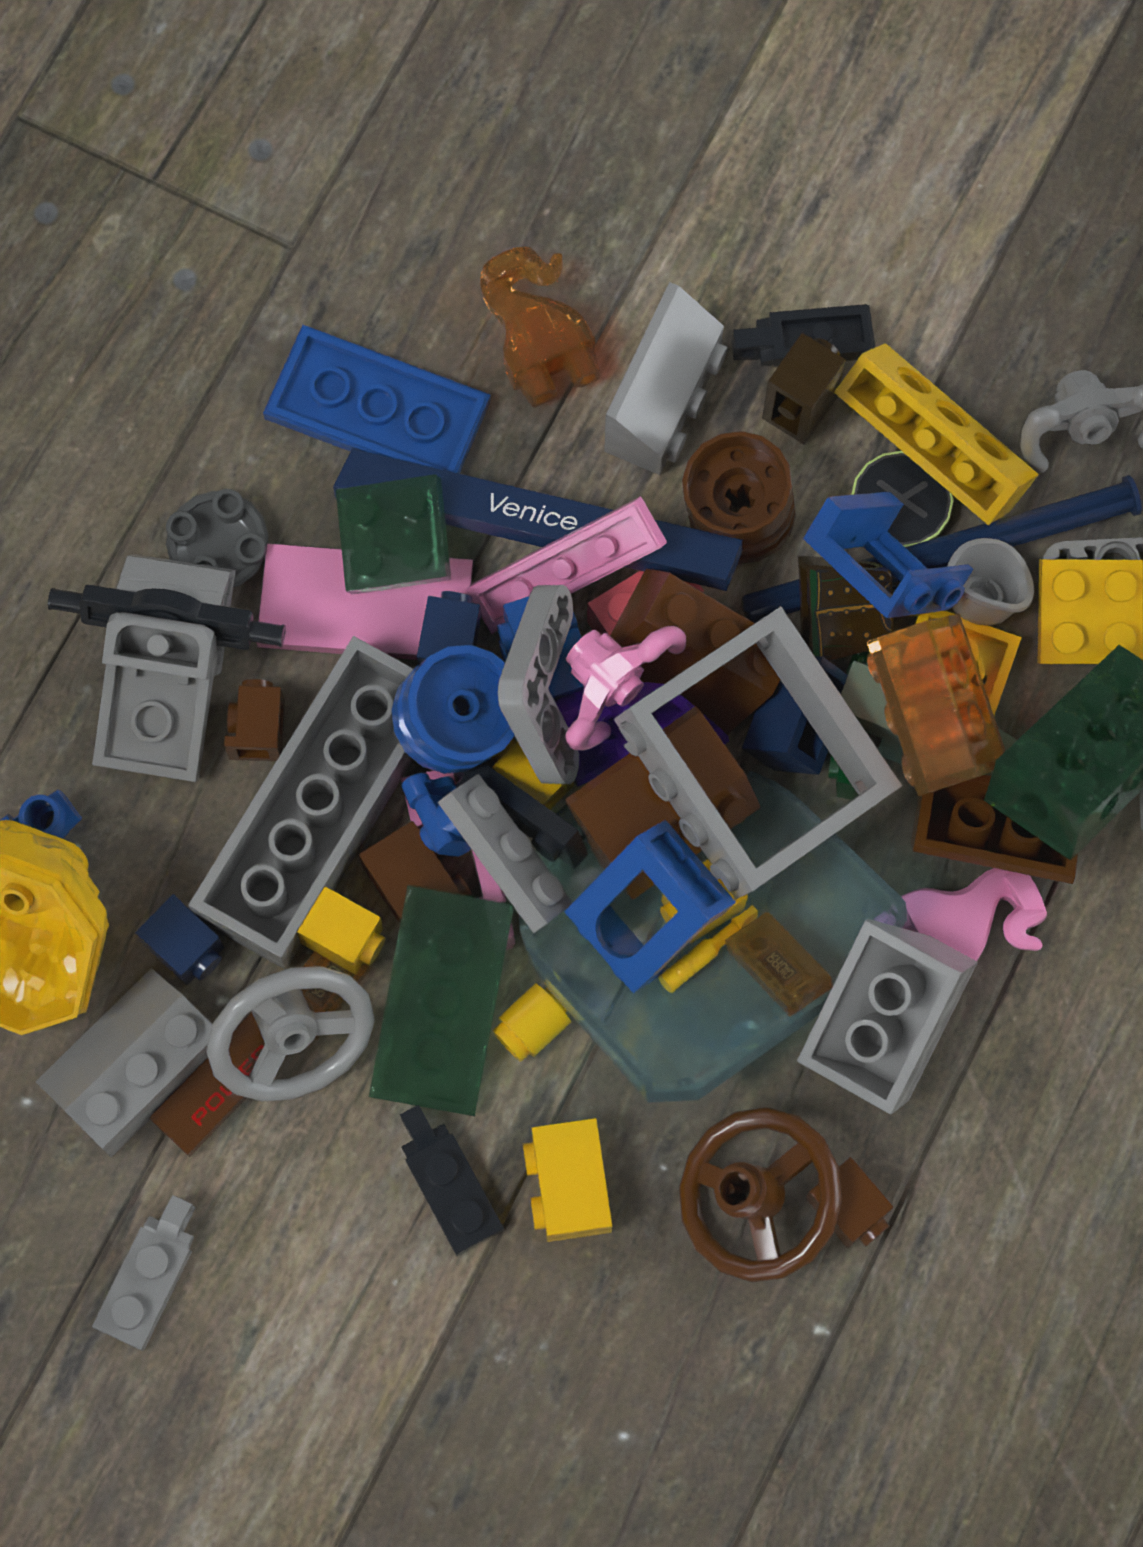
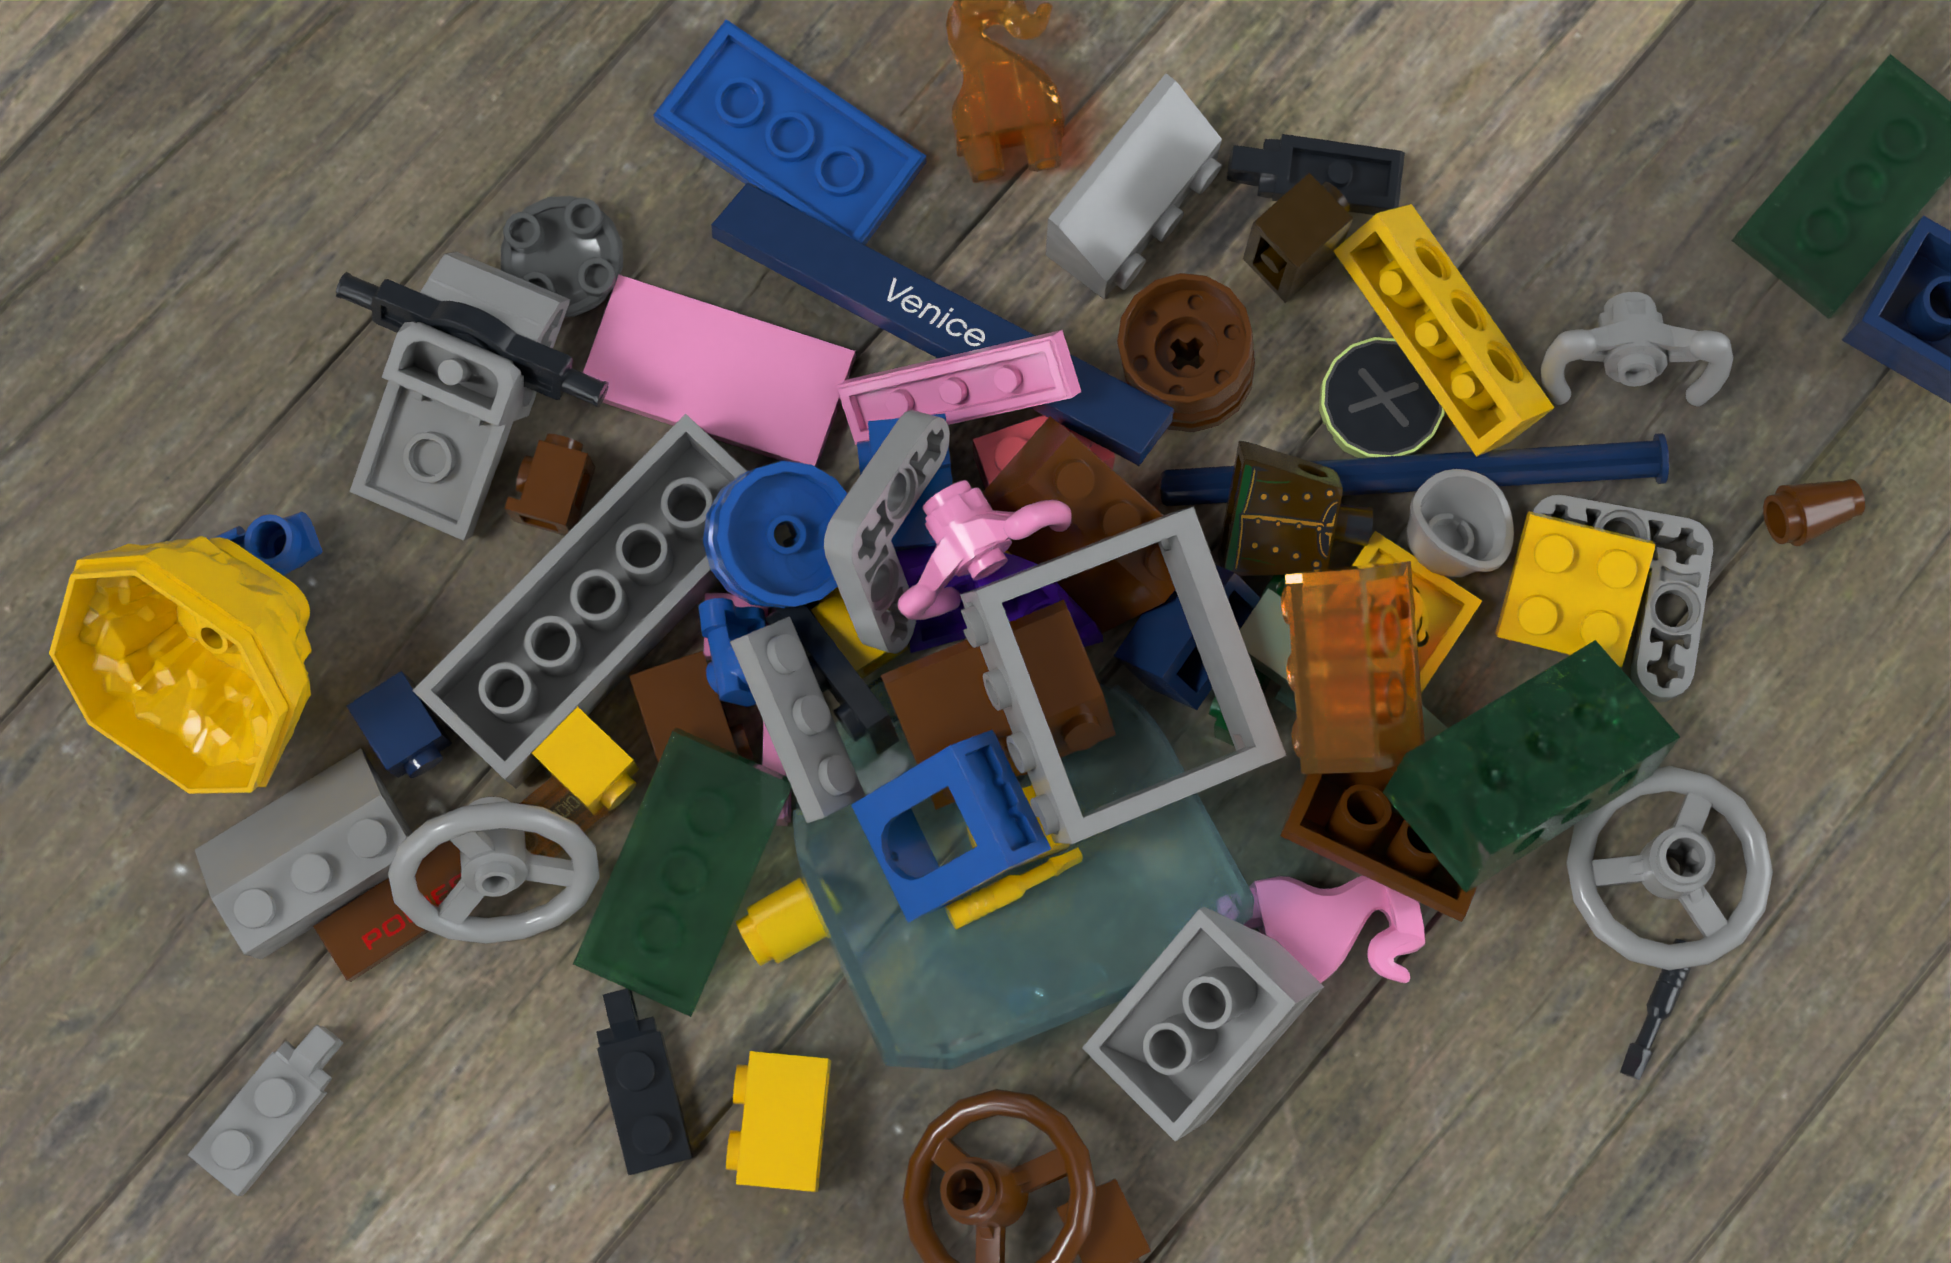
camera: 15 degrees right, 5 degrees up
(393, 534) = (766, 300): clear green plate -> none
(448, 622) = (803, 429): dark blue brick -> none
(779, 963) = (1089, 928): clear orange tile -> none
(865, 522) = (1329, 420): blue panel -> none

